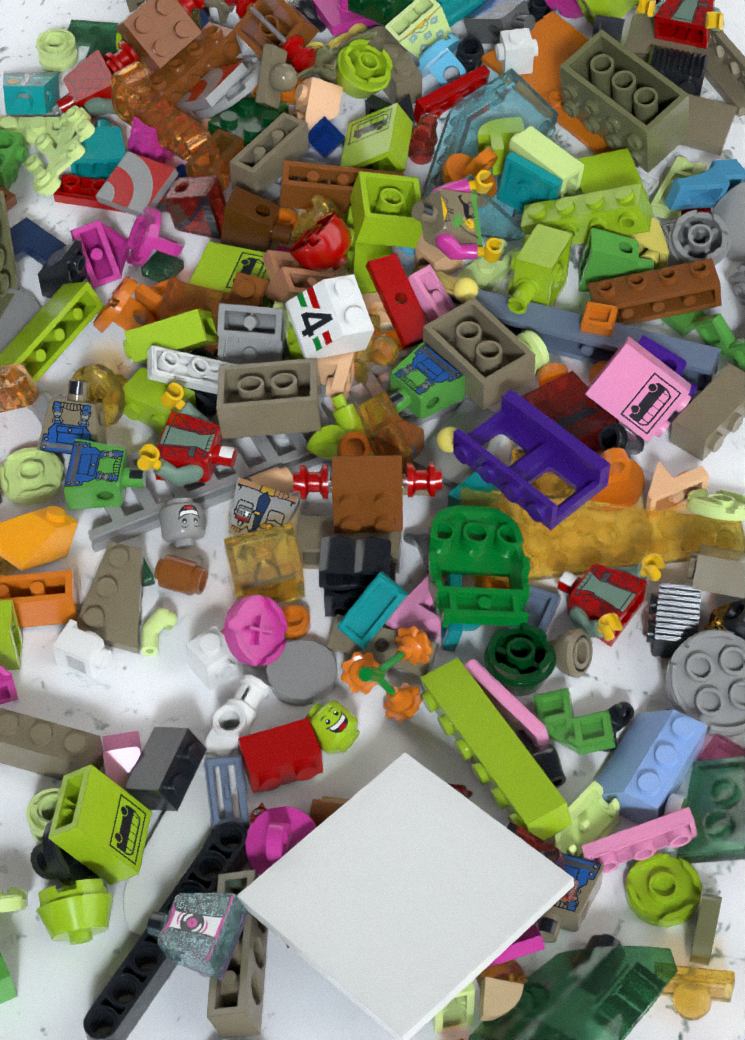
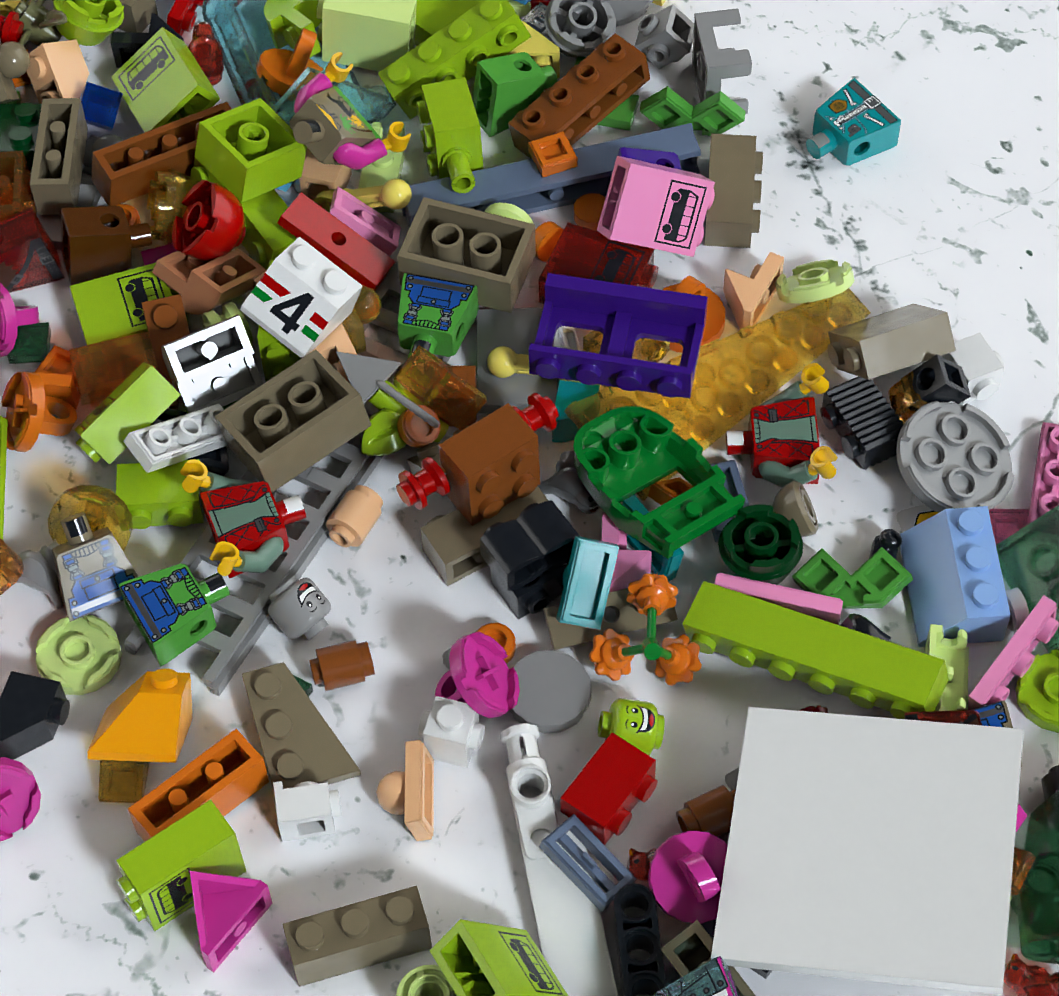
camera: 35 degrees left, 5 degrees up
(121, 756) = (451, 896): bright pink slope -> none
(151, 628) = (355, 739): yellowish green arm -> none
(158, 681) = (411, 791): none -> light nougat tile
(165, 768) = (508, 875): black brick -> none
(260, 508) = (379, 554): torso -> none
(265, 564) = (430, 606): clear yellow slope -> none
(339, 395) = (370, 374): none -> light grey piece
(497, 997) = (1031, 892): tan tile -> none
(526, 183) = (368, 48): teal tile -> none
(620, 437) = (661, 272): black cone -> none

